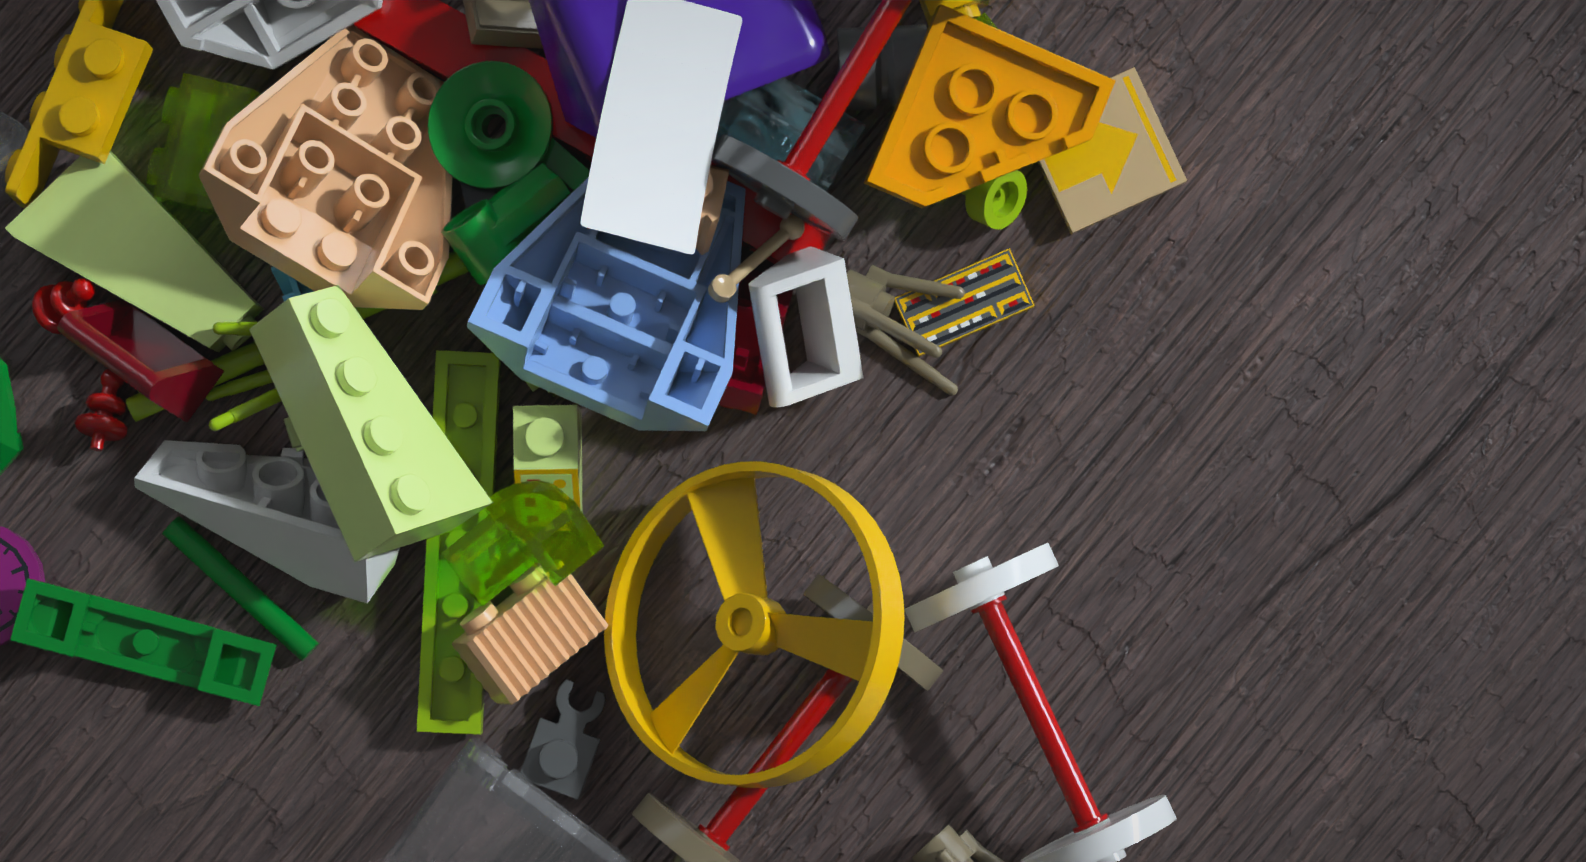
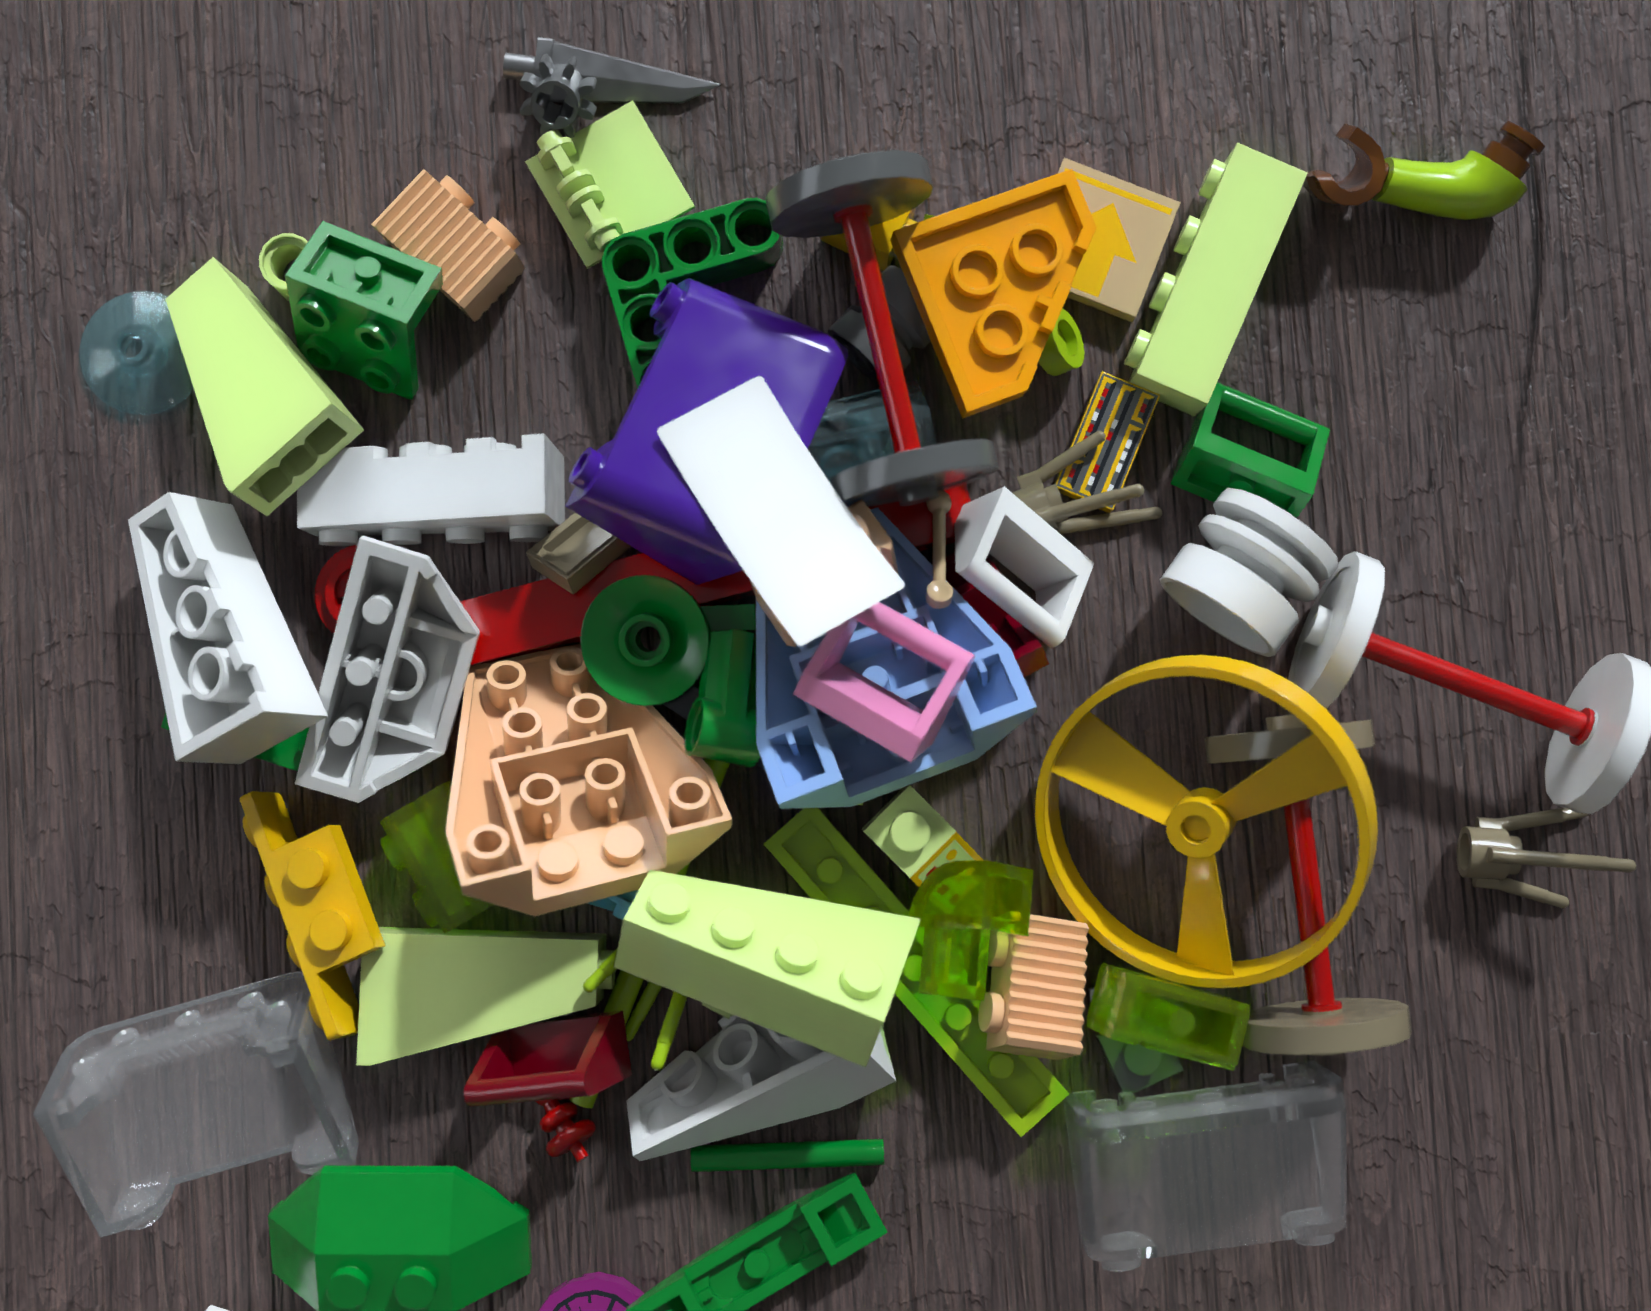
camera: 45 degrees left, 0 degrees up
(55, 301) = (450, 1075): red hair -> none
(596, 317) = (871, 707): none -> bright pink tile
(599, 739) = (1168, 1016): none -> clear neon green brick
(965, 488) = (1255, 562): none -> white wheel
(1034, 422) = (1214, 463): none -> green tile
(1154, 260) = (1216, 277): none -> yellowish green brick
(1398, 366) = (1456, 190): none -> piece

